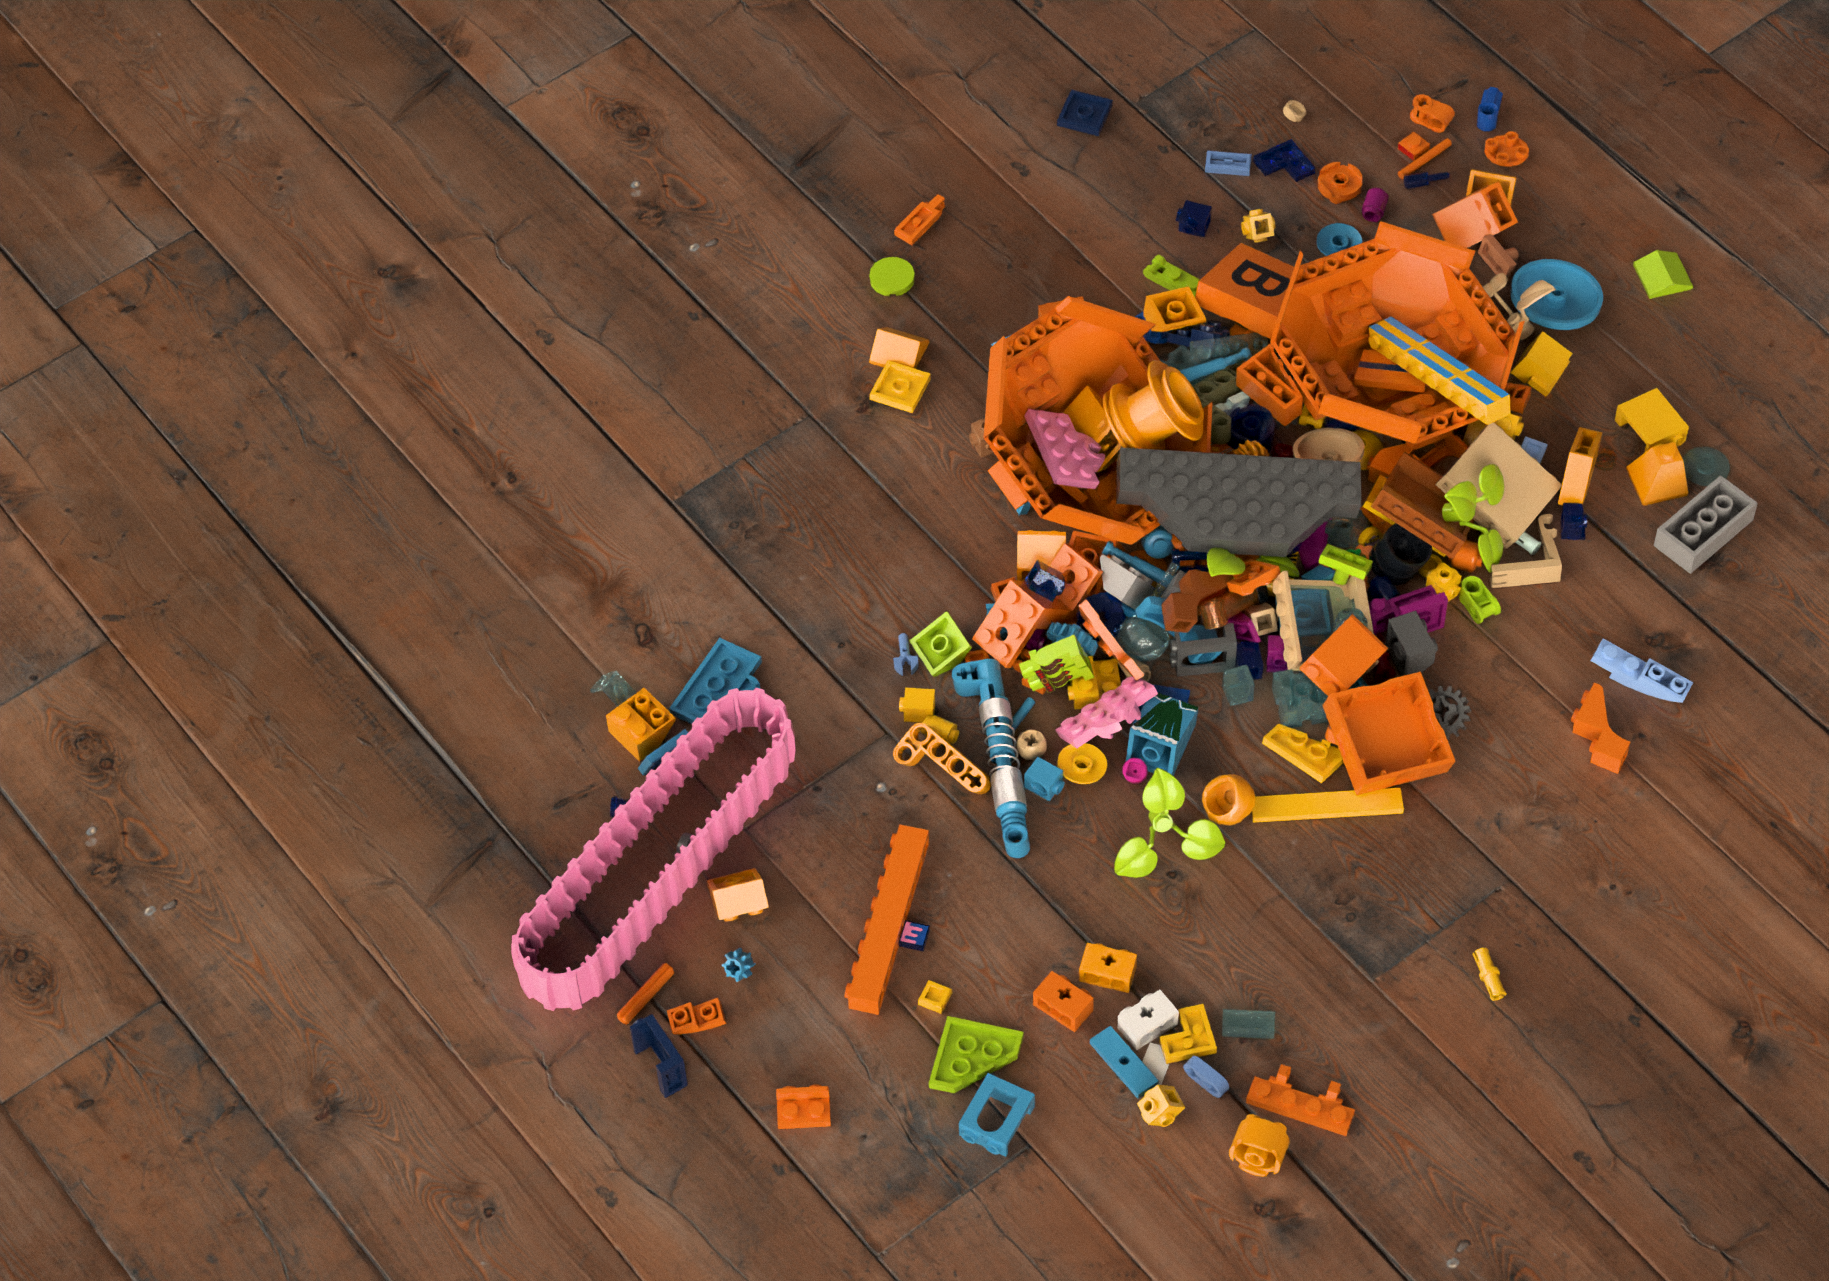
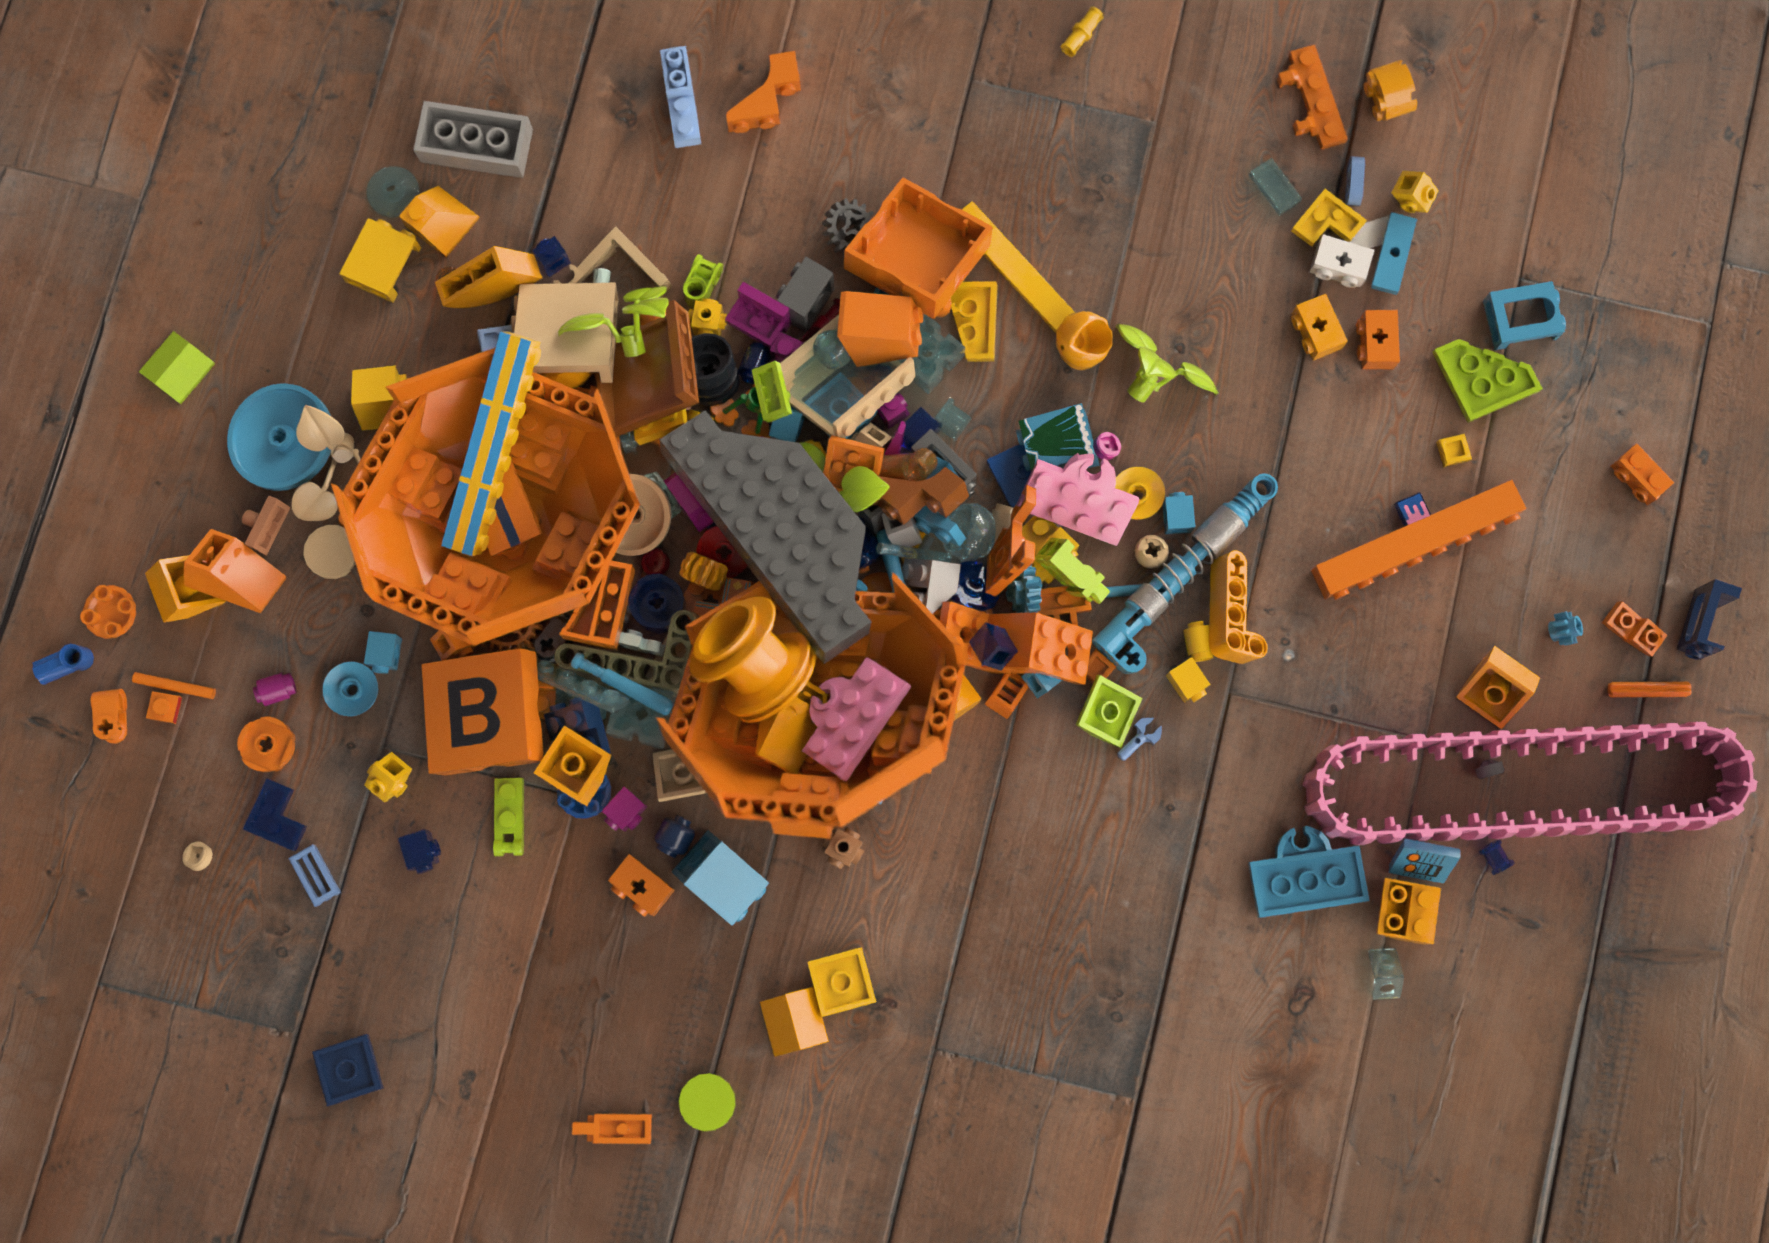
camera: 130 degrees left, 25 degrees up
(1423, 179) = (204, 667): clear blue axle -> none

